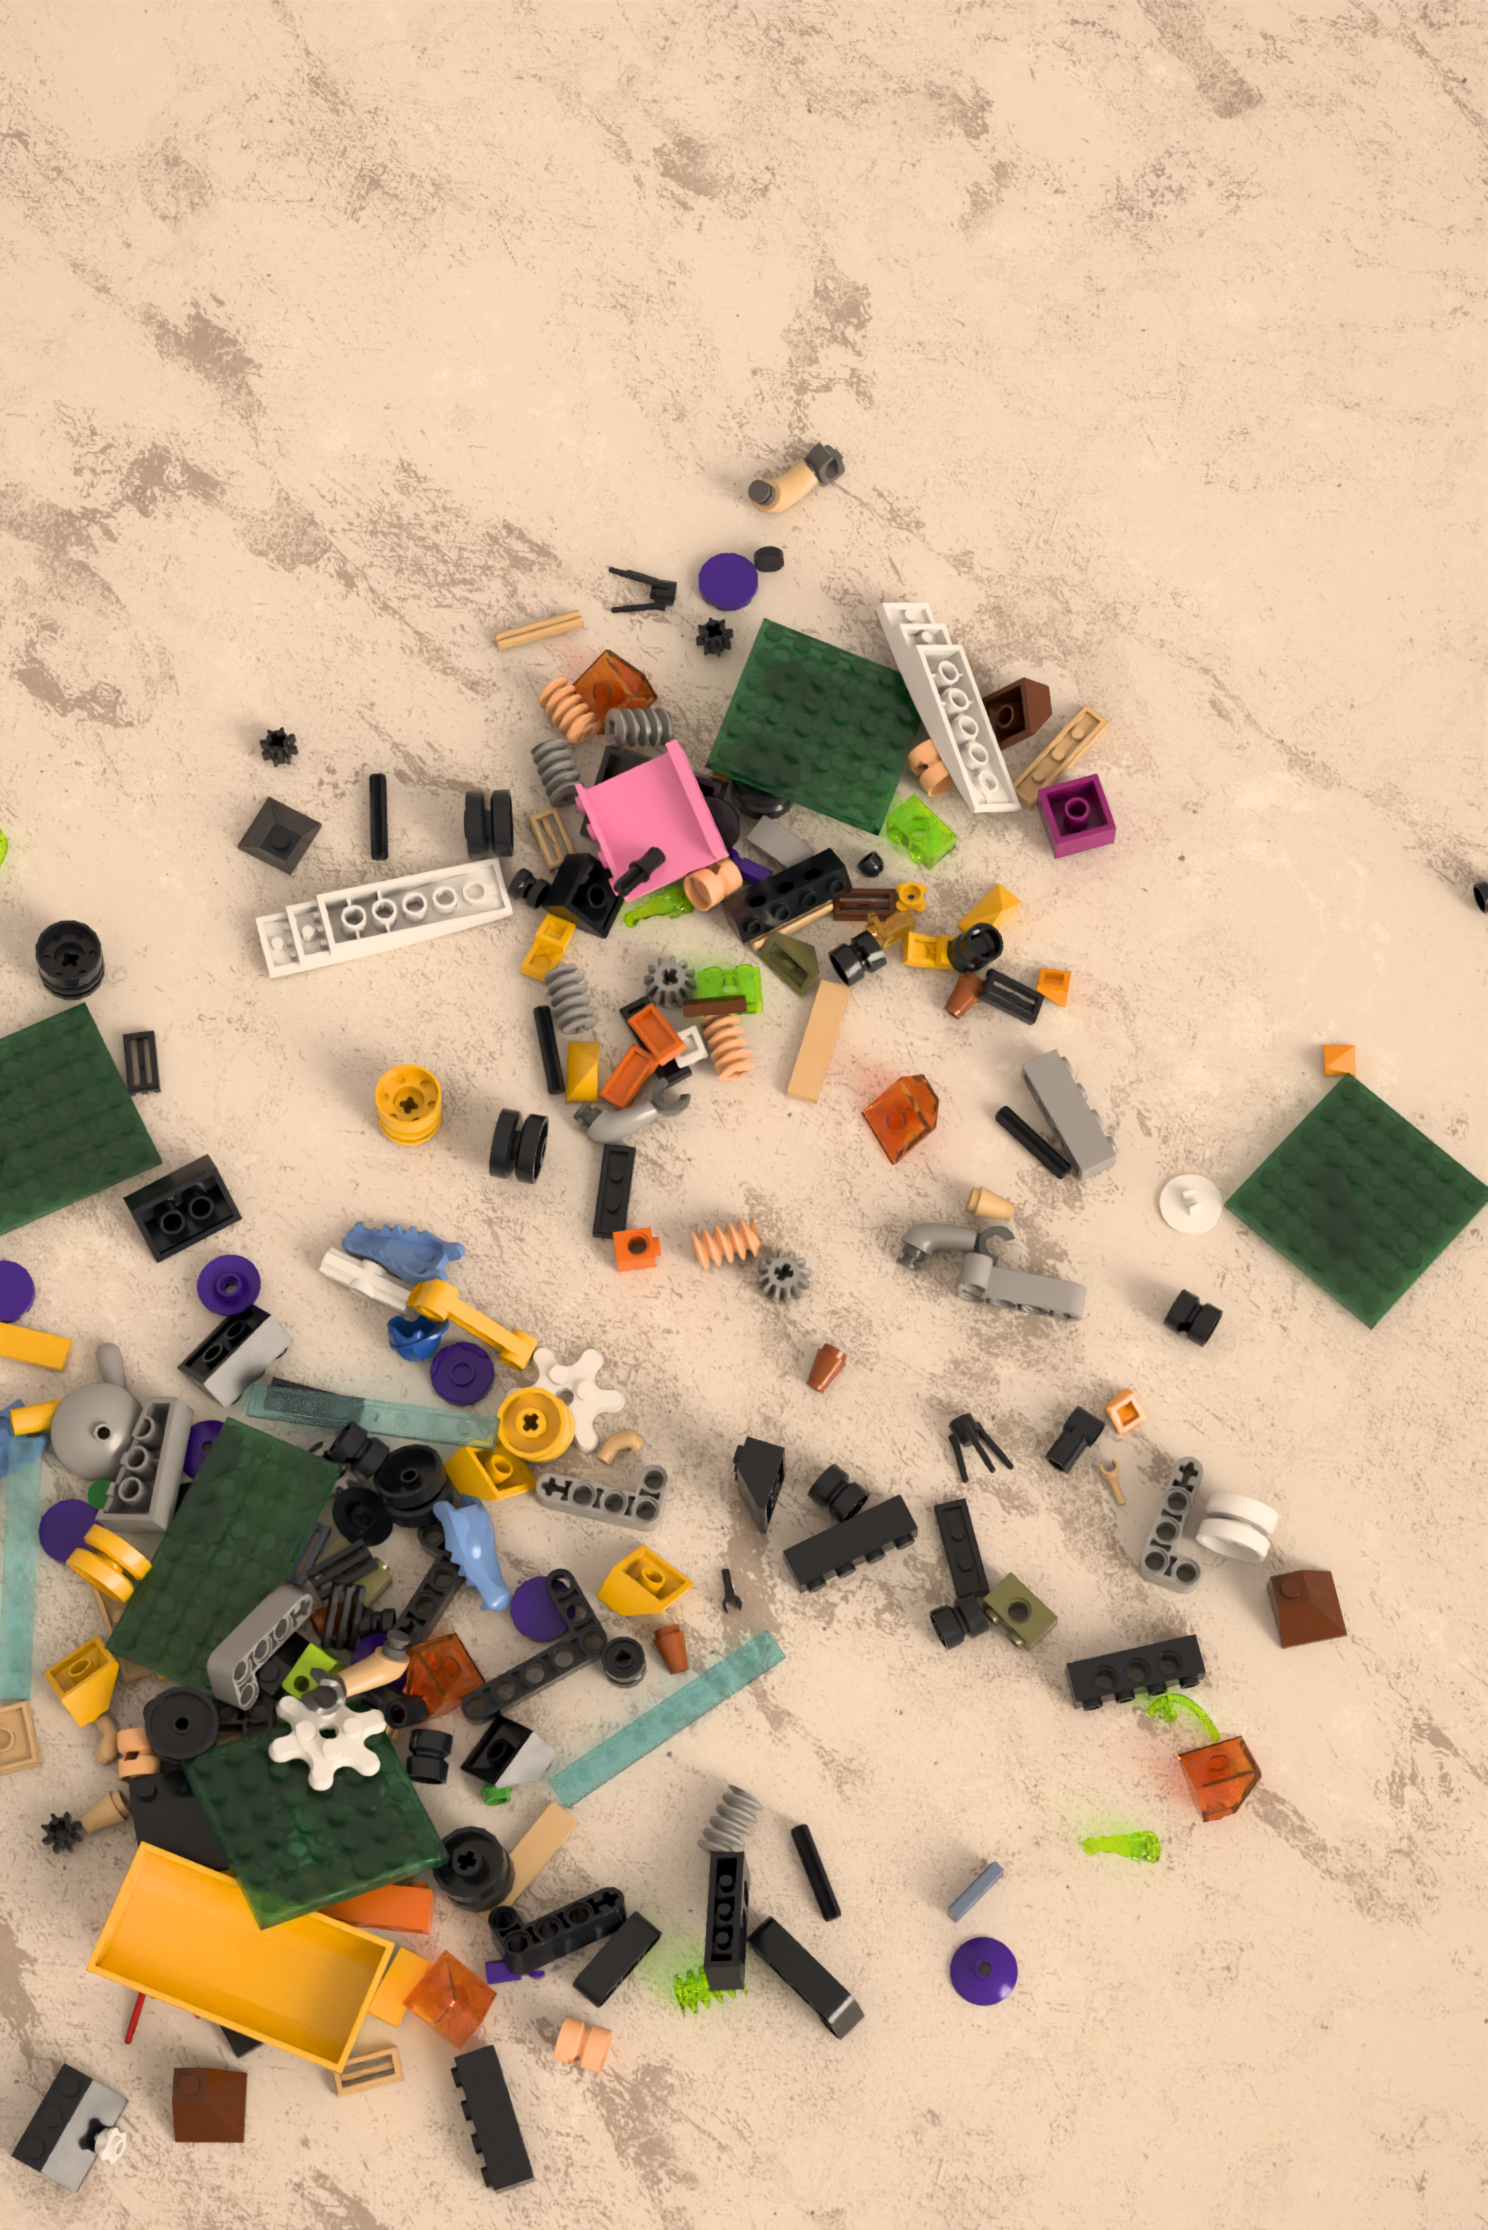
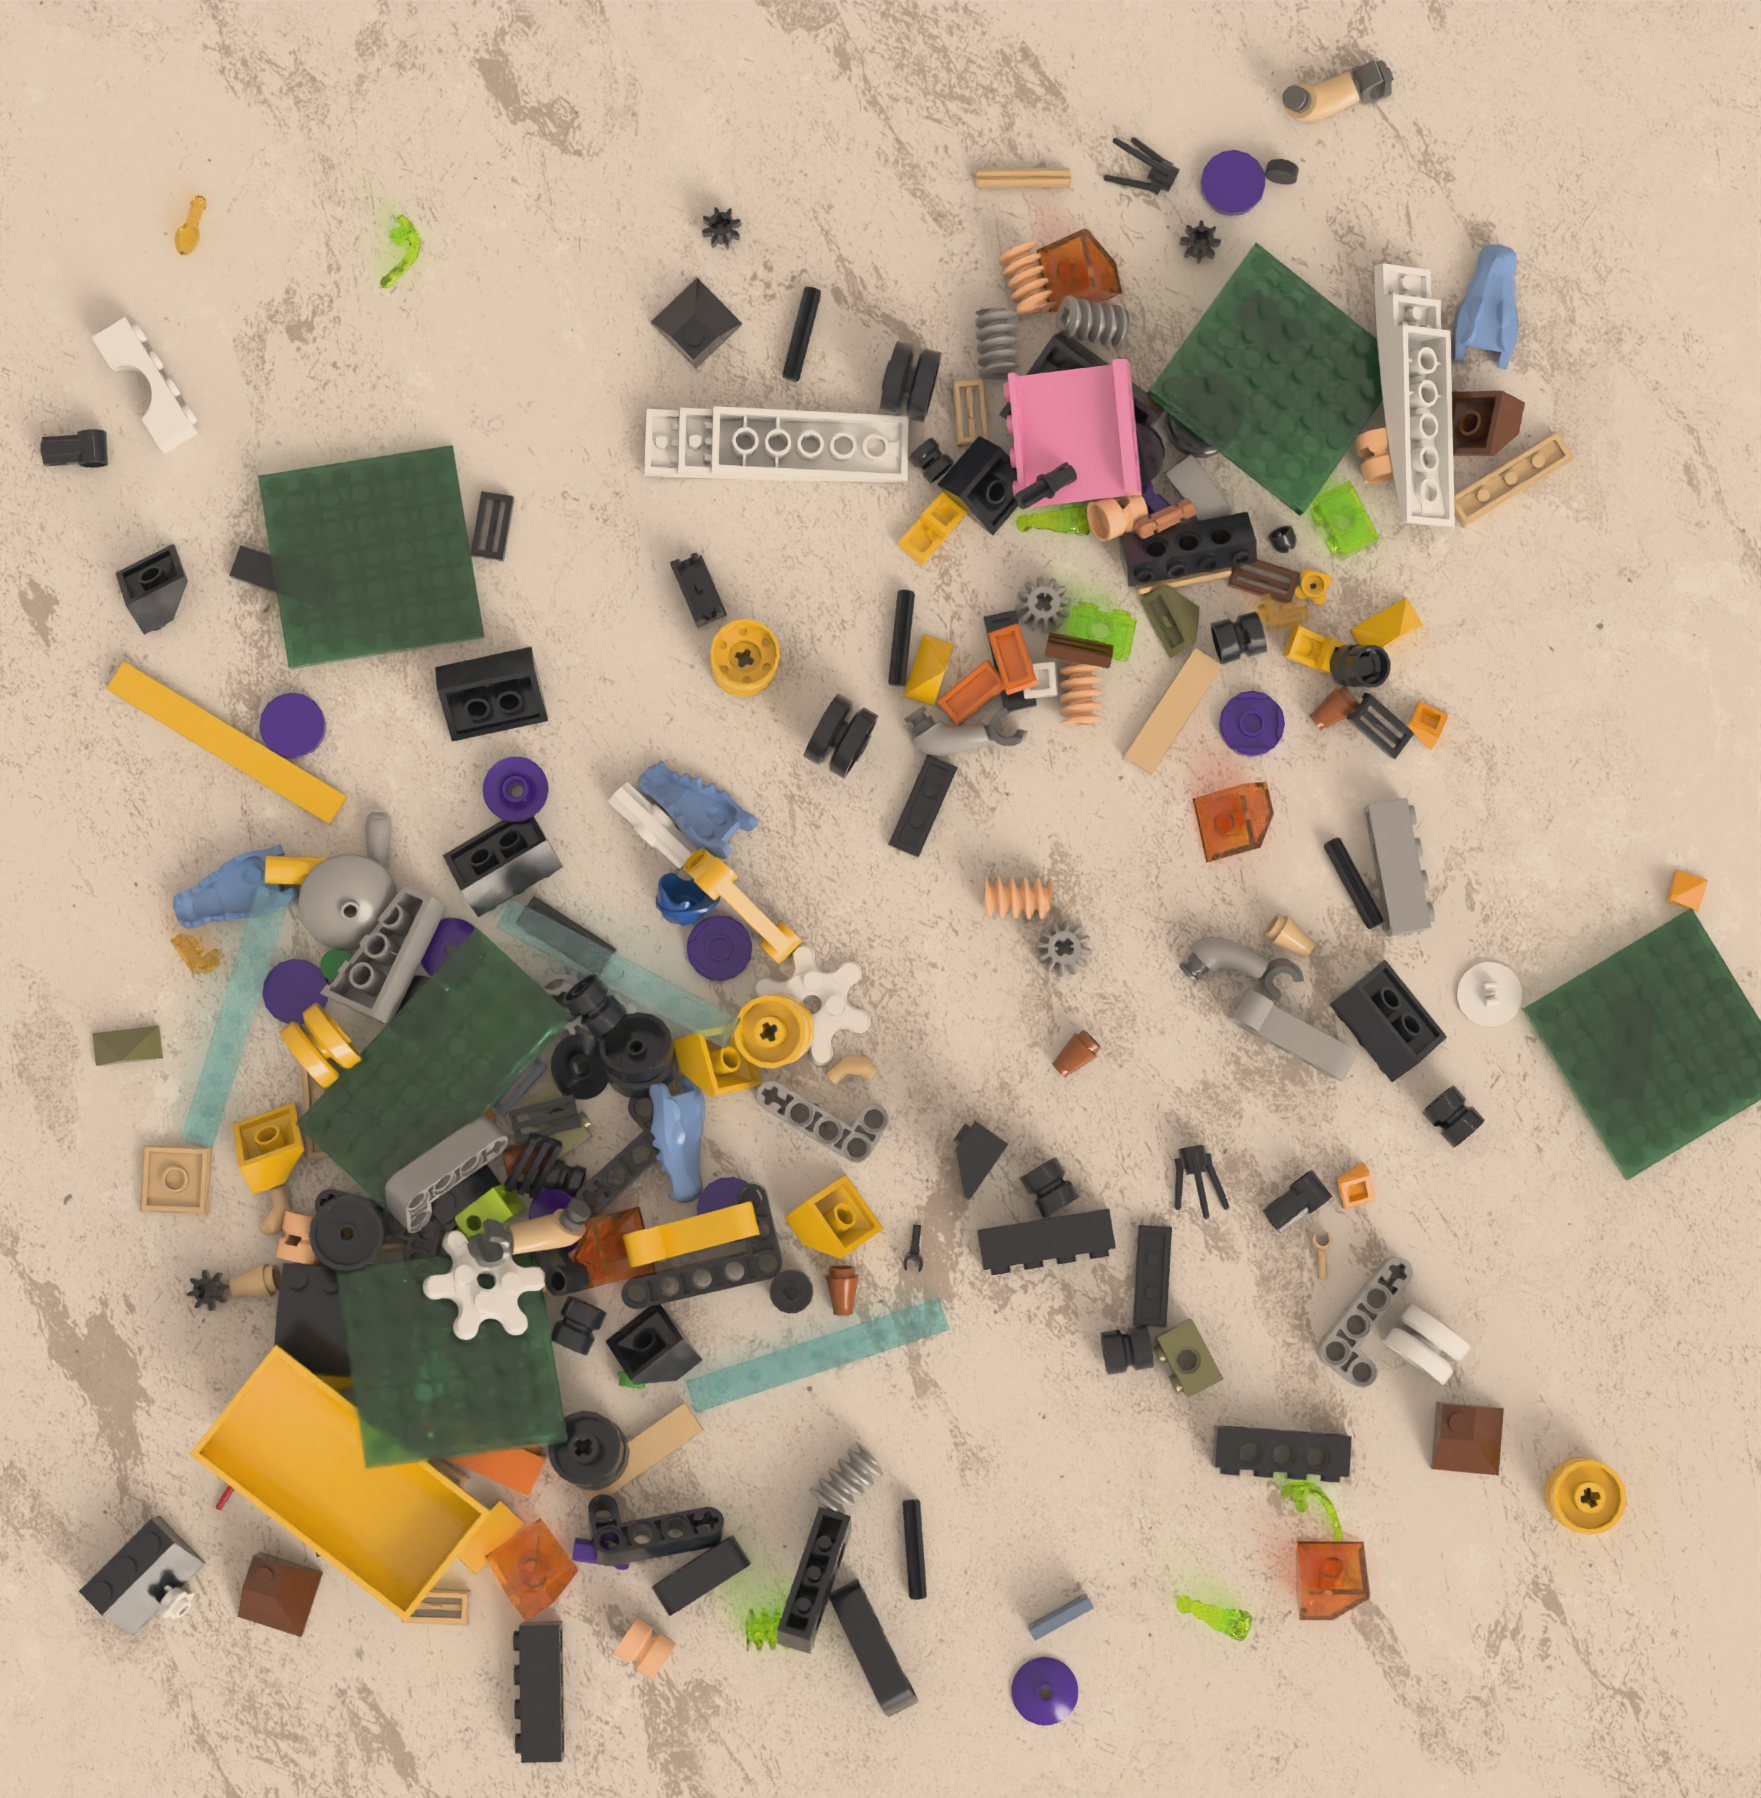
camera: 15 degrees right, 15 degrees up
(71, 944) = (454, 381): black wheel -> none
(348, 1062) = (698, 589): none -> black hinge
(512, 1636) = (691, 1234): none -> yellow beam
(568, 999) = (936, 594): light grey piece -> none
(626, 1239) = (915, 864): orange brick -> none
(757, 873) = (1164, 518): none -> nougat axle
(894, 1032) = (1251, 723): none -> dark purple tile
(990, 619) = (1489, 310): none -> medium blue animal
(1076, 816) = (1507, 553): magenta brick -> none
(1104, 1252) = (1388, 1021): none -> black slope
(1436, 1642) = (1605, 1499): none -> yellow wheel

